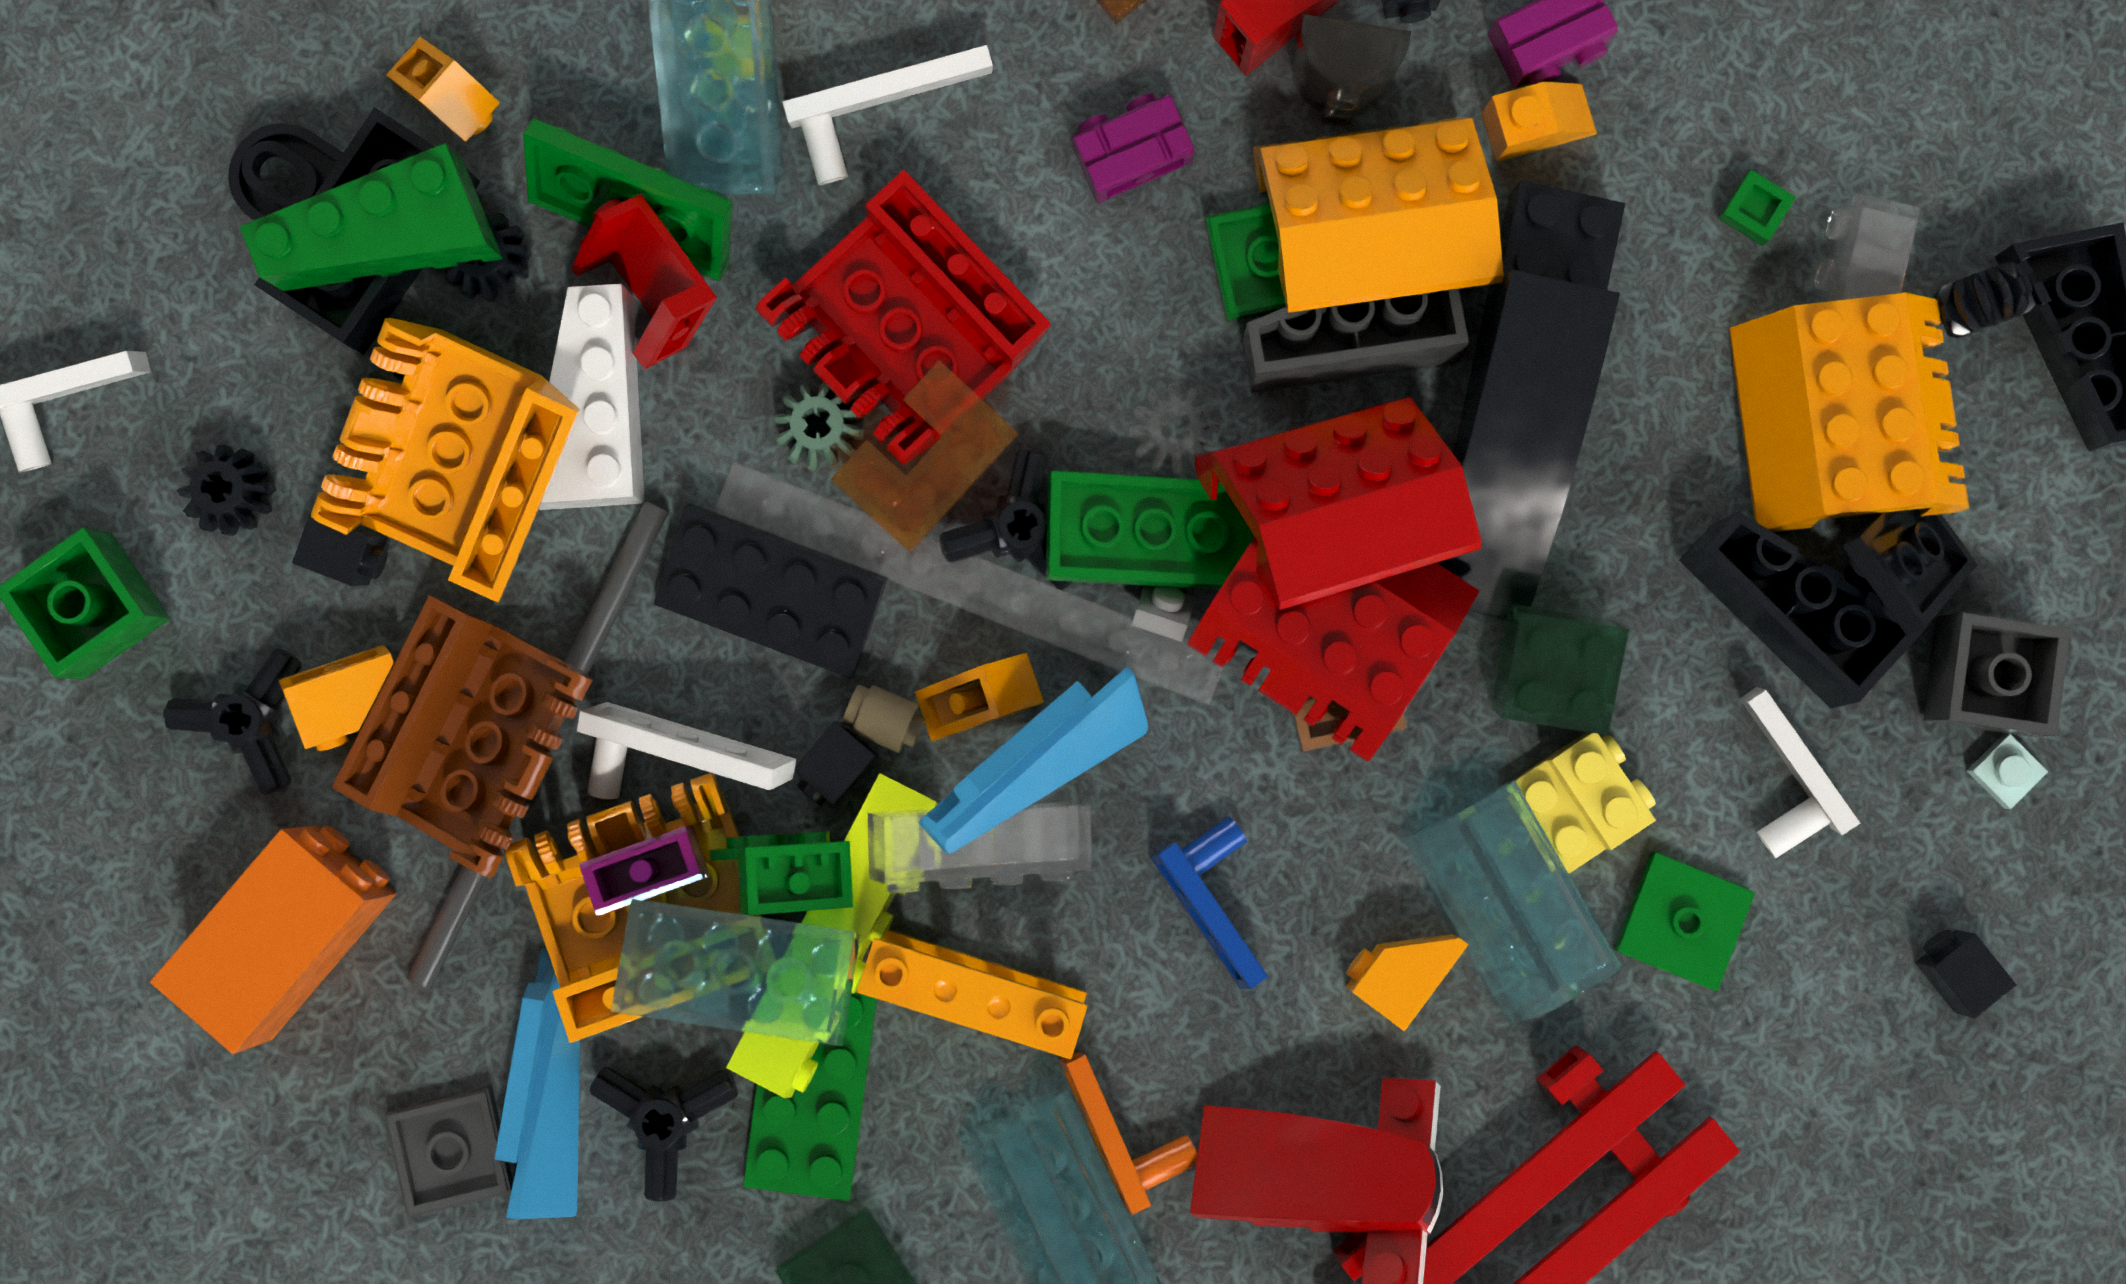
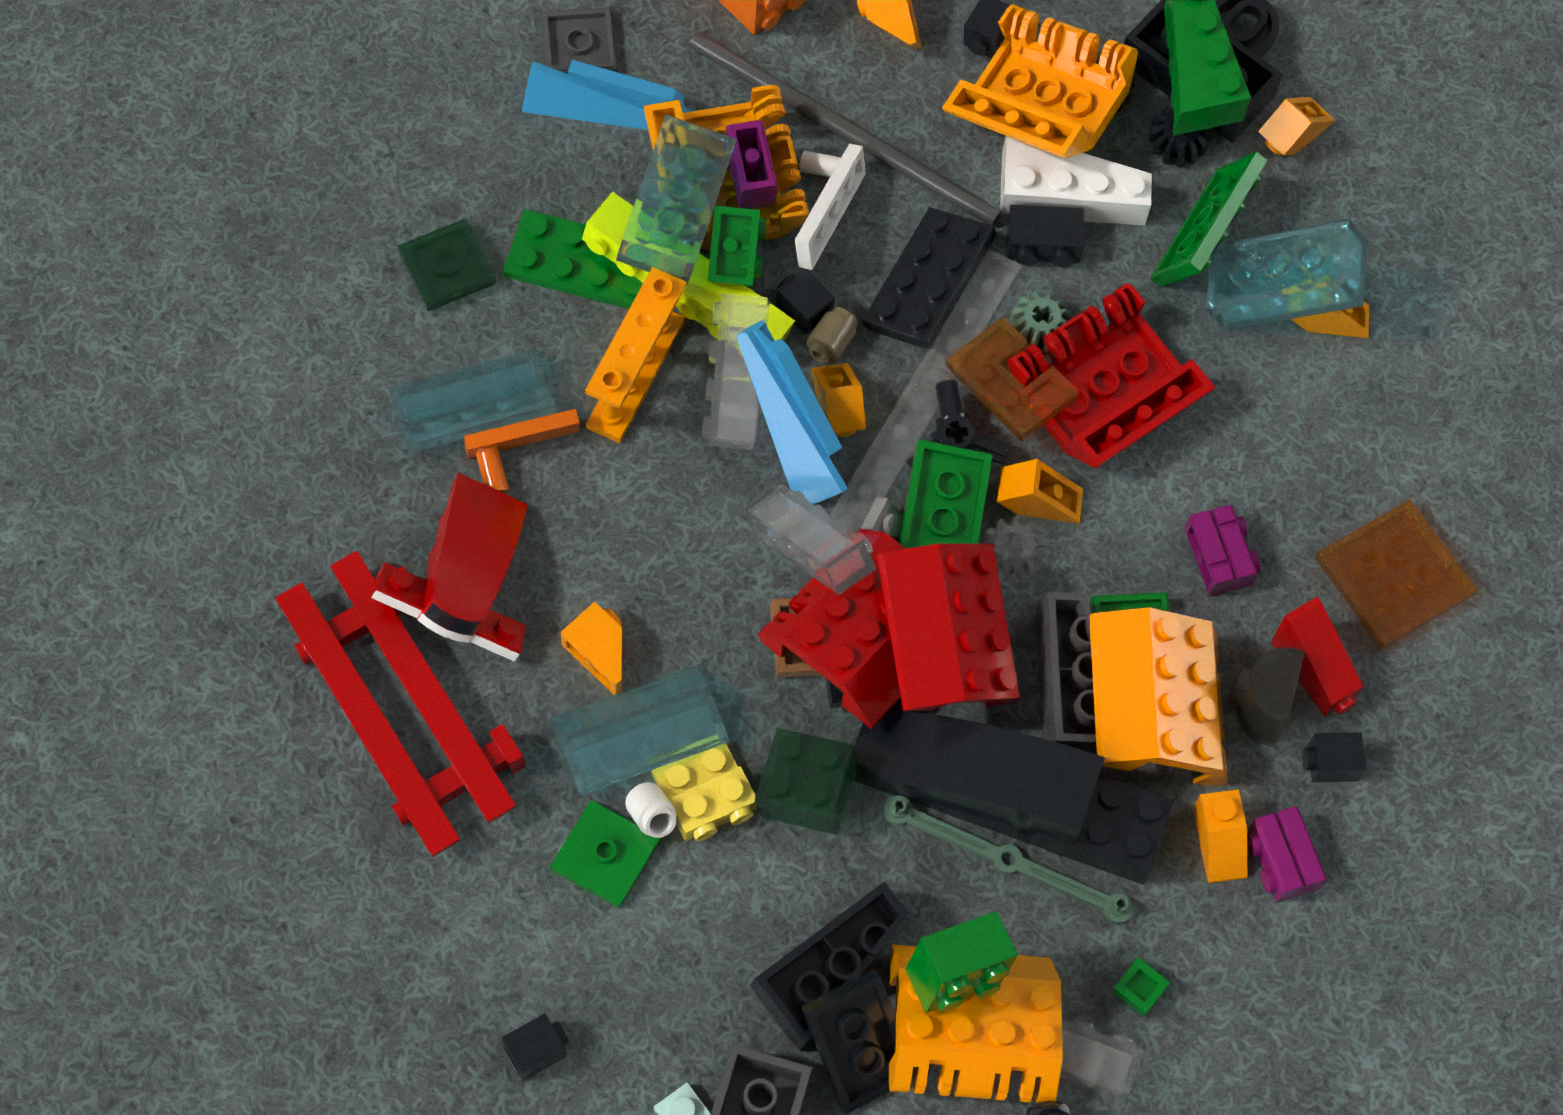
camera: 90 degrees right, 20 degrees down
(462, 733) = (859, 77): dark orange slope -> none
(654, 270) = (1122, 233): red panel -> none
(660, 1144) = (579, 178): black bush -> none
(678, 433) = (1045, 235): none -> black brick
(816, 109) = (1265, 350): white piece -> none
(1085, 402) = (1039, 492): none -> light orange slope
(1182, 872) = (695, 509): blue piece -> none
(1231, 707) = (811, 538): none -> clear brick
(1629, 869) = (651, 810): none -> white brick
(1648, 249) = (1116, 908): none -> sand green piece
(1824, 803) = (680, 963): white piece -> none
(1845, 428) = (961, 963): none -> green brick

